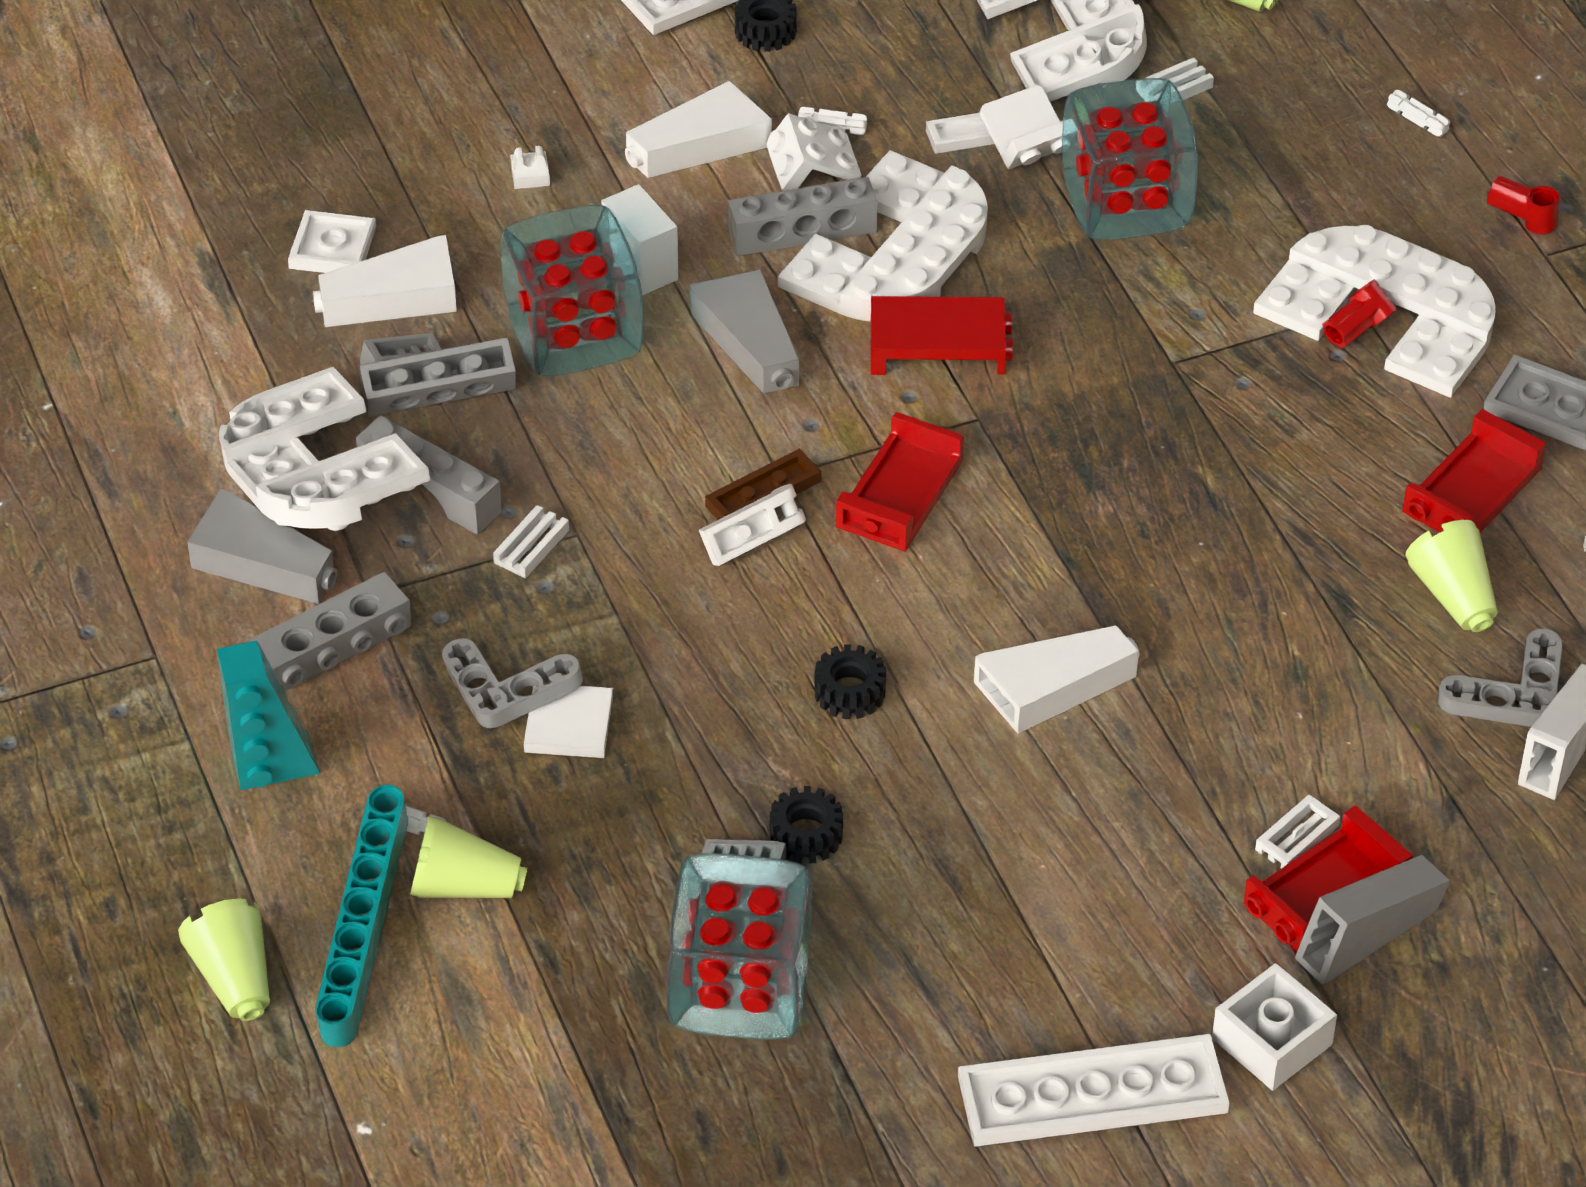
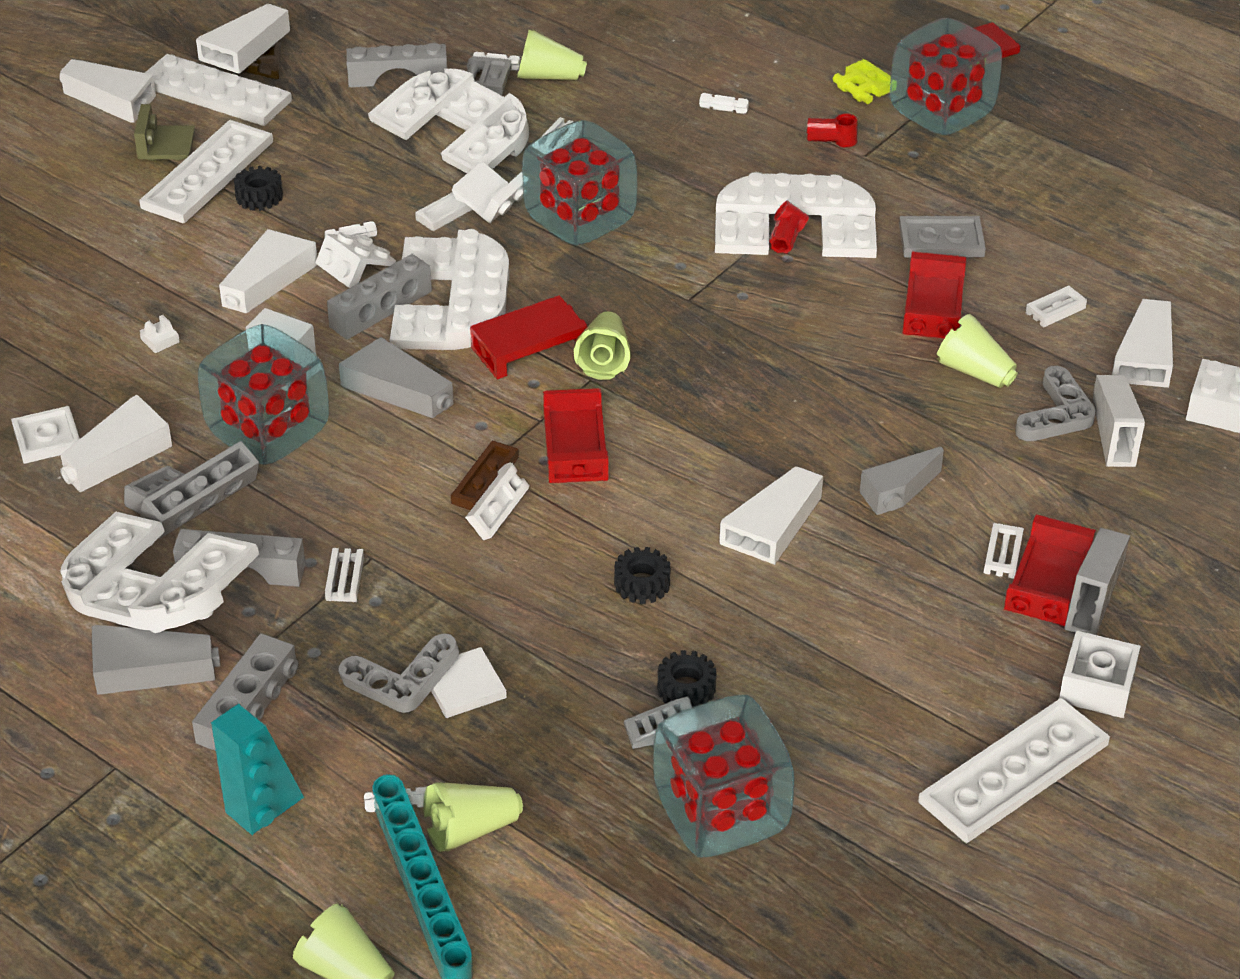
camera: 30 degrees left, 5 degrees down
(1011, 381) = (603, 347): none -> yellowish green cone
(1236, 695) = (898, 481): none -> light grey slope

